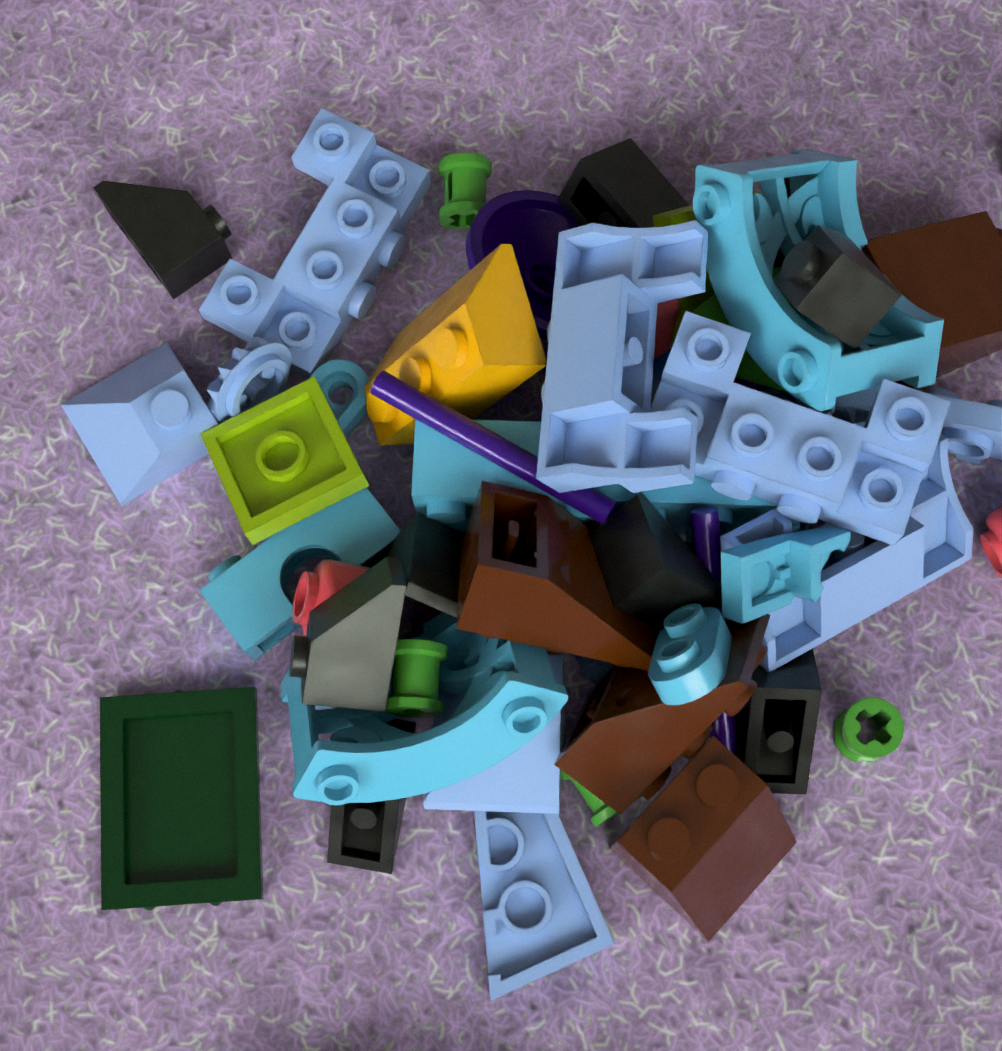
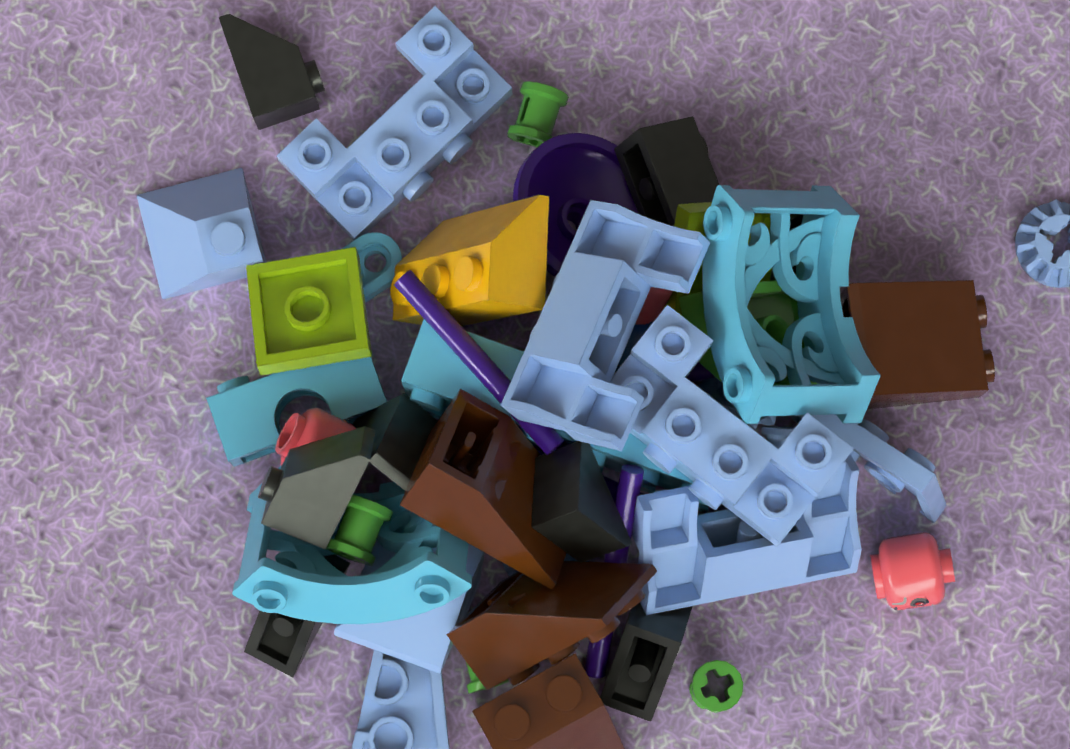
camera: 15 degrees right, 5 degrees up
(180, 799) = (141, 561): dark green piece -> none
(249, 377) = (301, 231): light blue gear -> none
(690, 654) = (577, 583): medium azure plate -> none
(776, 569) = (672, 536): medium azure slope -> none
(836, 285) = (793, 323): pearl dark grey slope -> none

